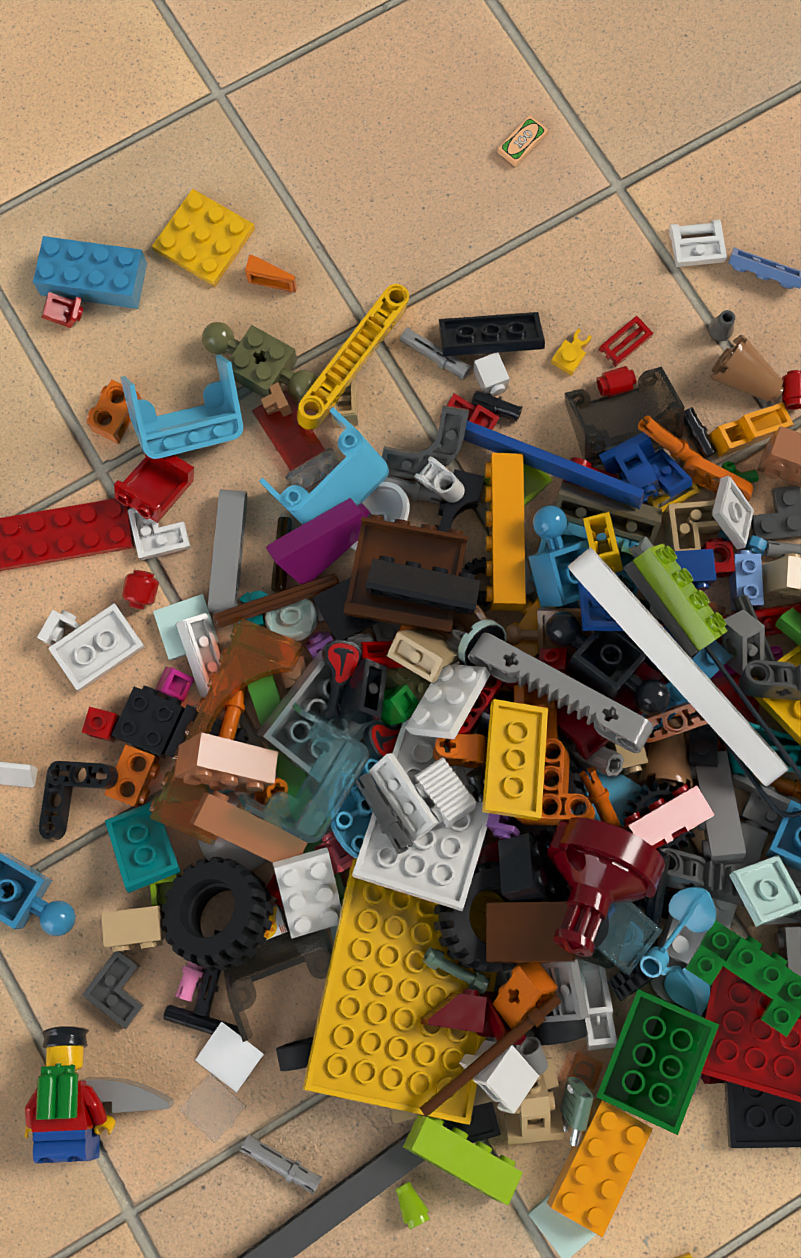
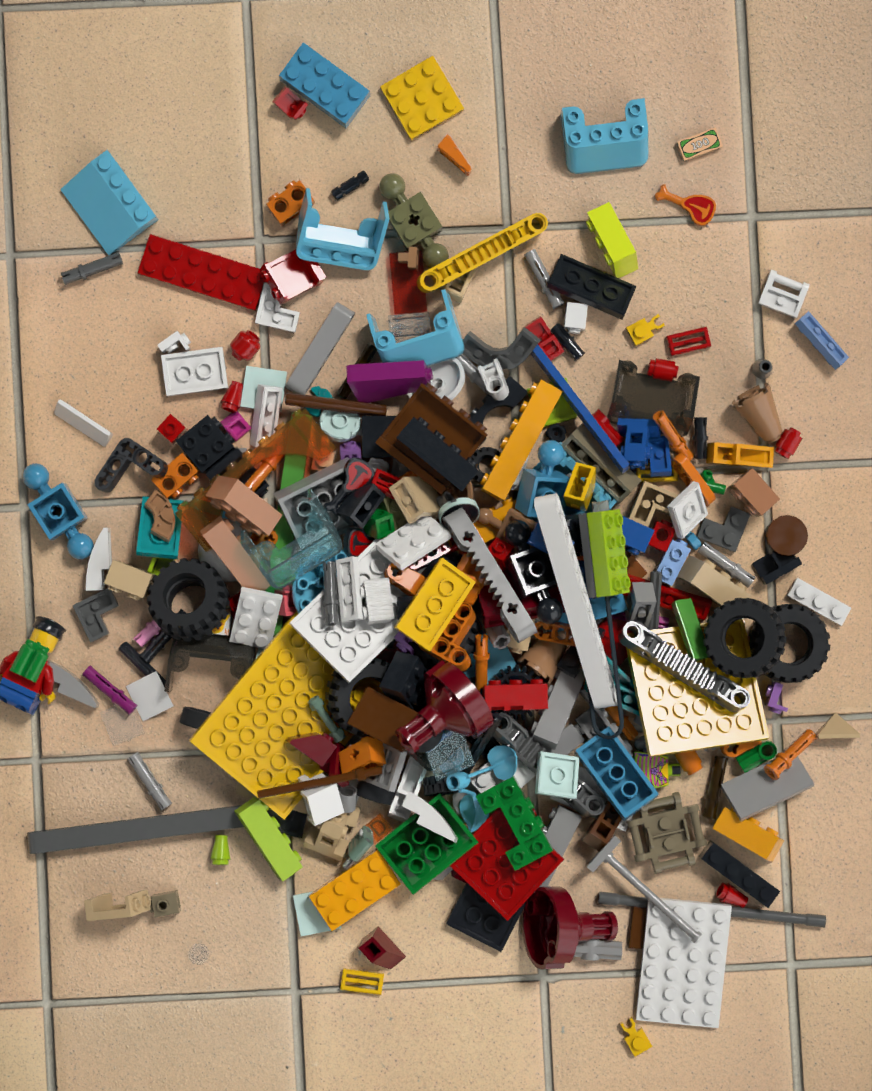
camera: 20 degrees right, 10 degrees up
(89, 924) = (99, 561): none -> white slope
(138, 829) = (162, 514): none -> medium nougat tile
(155, 655) = (232, 398): none -> red cone
(171, 362) = (350, 185): none -> black axle
(188, 1078) = (117, 696): none -> magenta pin
(424, 184) = (608, 144): none -> medium azure windscreen
(488, 275) = (612, 240): none -> neon yellow wedge
(534, 503) = (556, 428): none -> black plate
(558, 202) = (700, 207): none -> orange piece
(644, 1025) = (429, 816): none -> white slope
(670, 1225) = (381, 949): none -> dark red slope

